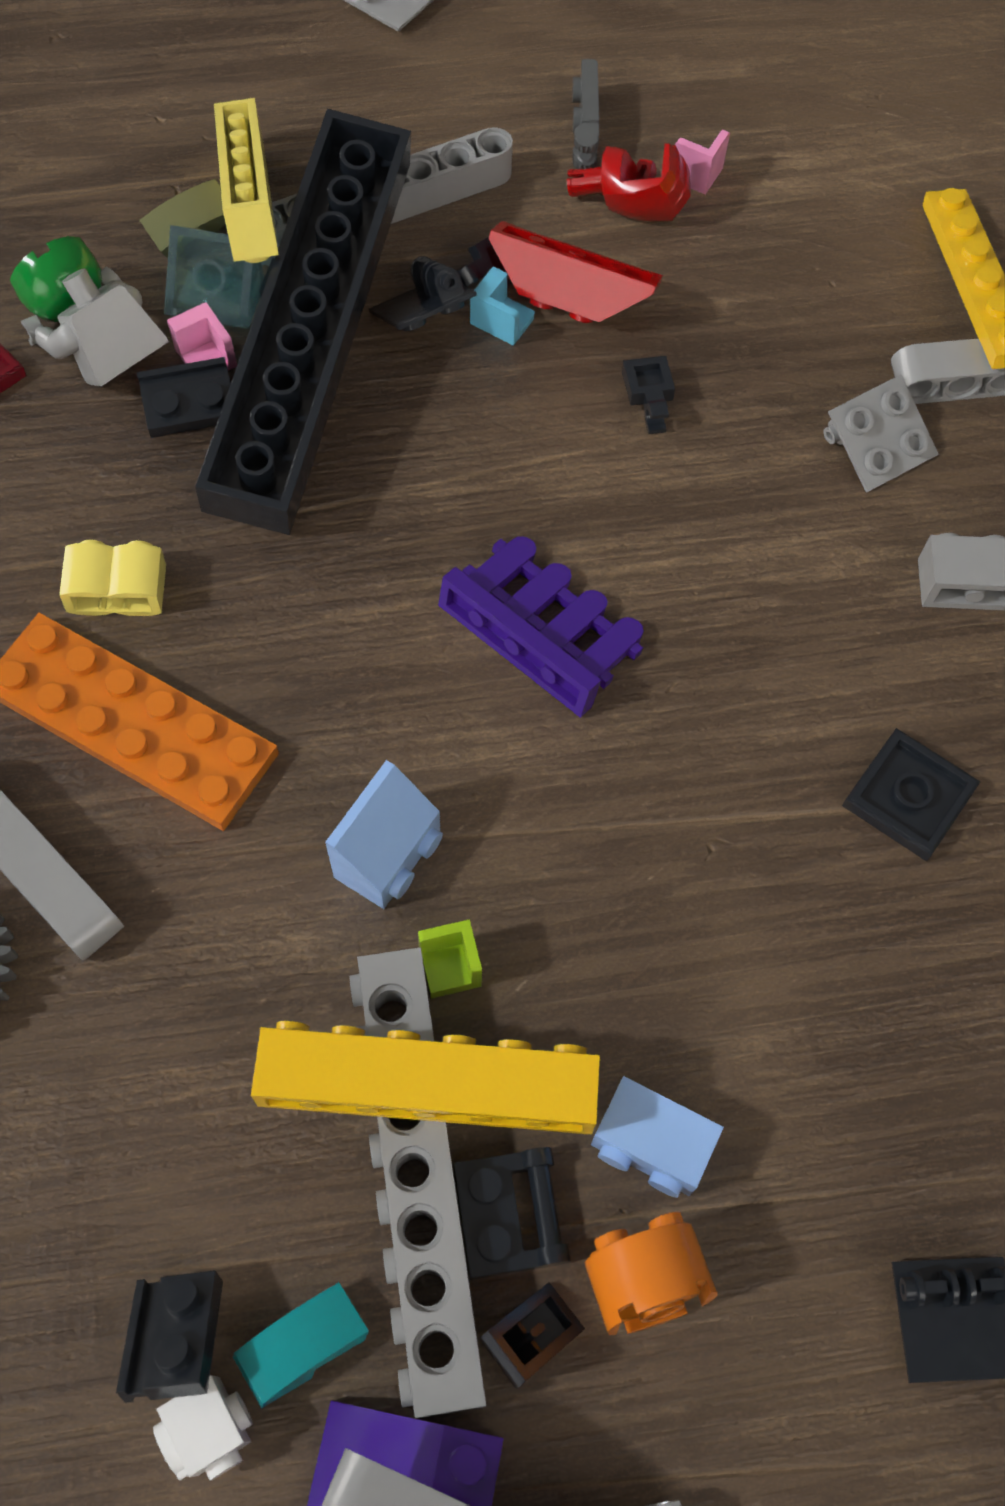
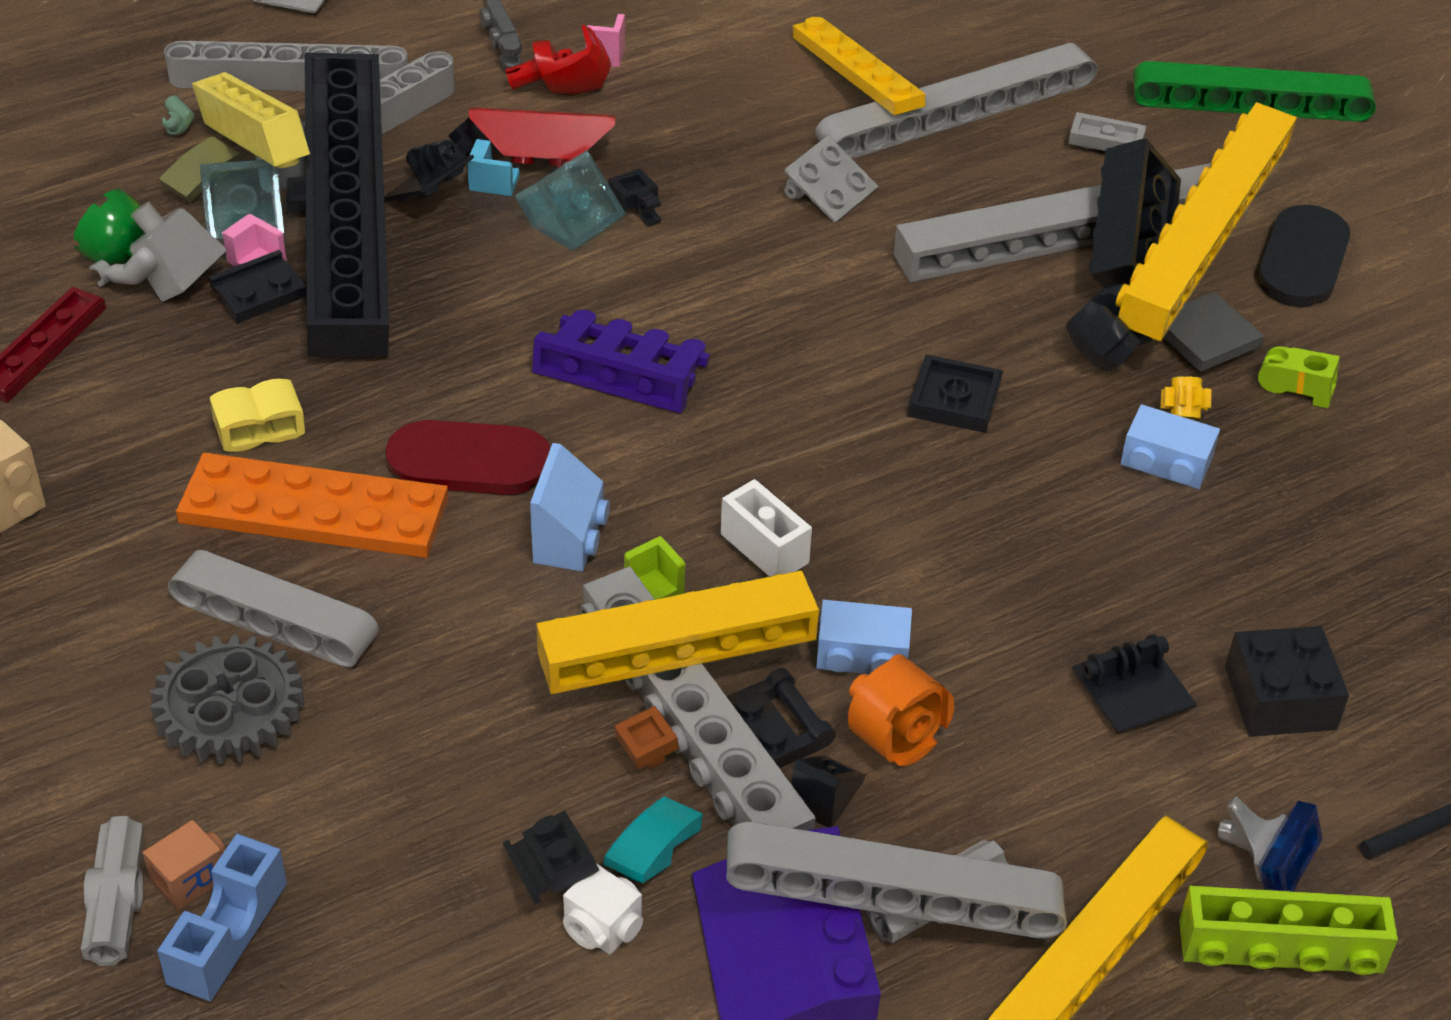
camera: 20 degrees left, 20 degrees down
(201, 139) = (180, 115): none -> sand green arm
(308, 90) = (262, 64): none -> light grey beam
(319, 707) = (468, 456): none -> dark red tile
(346, 1199) = (647, 738): none -> dark orange tile
(569, 381) = (571, 202): none -> clear light blue slope
(600, 942) = (765, 529): none -> white brick

